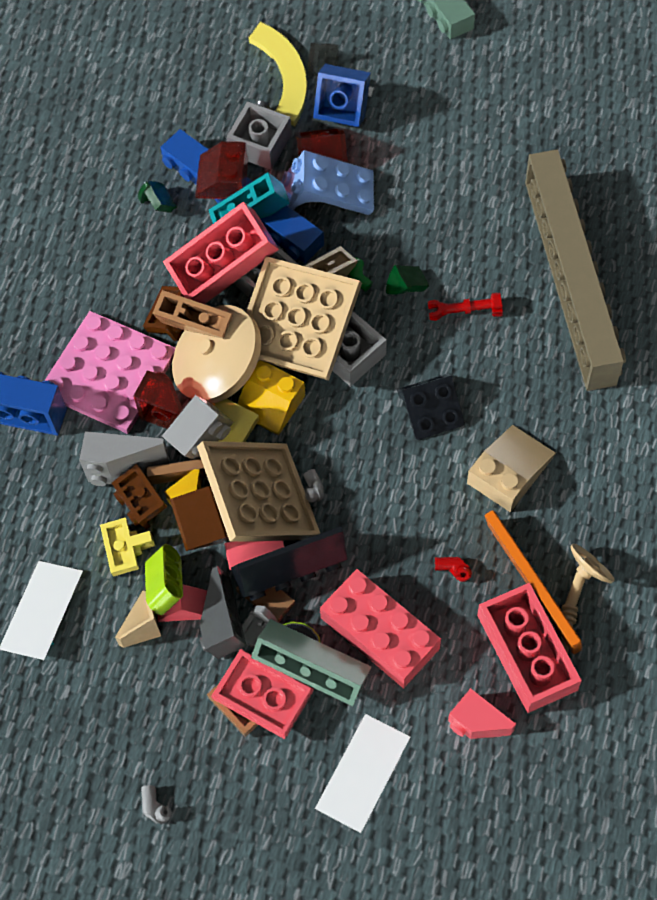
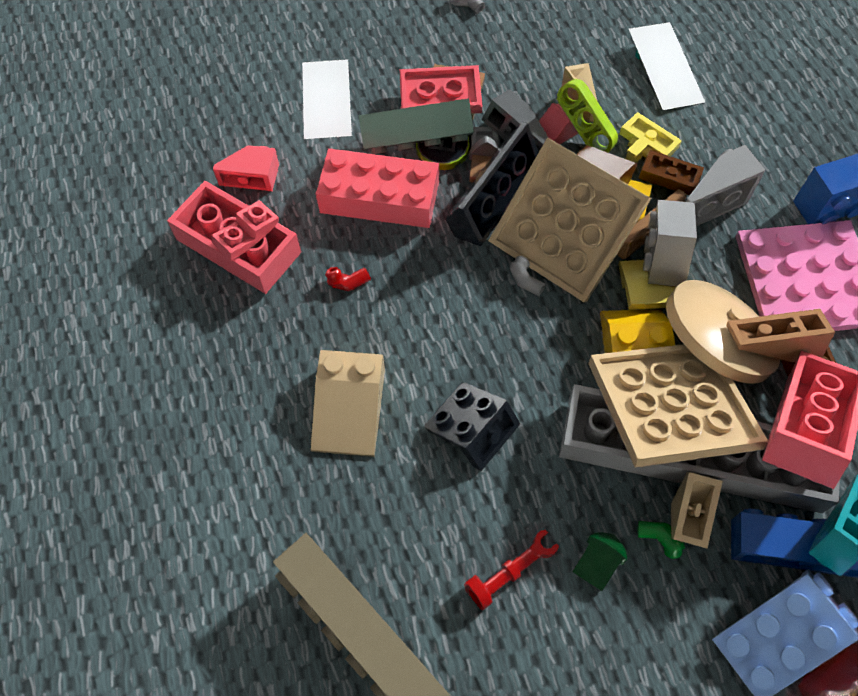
camera: 145 degrees right, 0 degrees up
(157, 400) = (728, 256): clear red slope -> none
(520, 625) = (250, 227): none -> coral slope
(530, 576) = (262, 295): orange tile -> none
(586, 569) = (216, 331): tan dish -> none

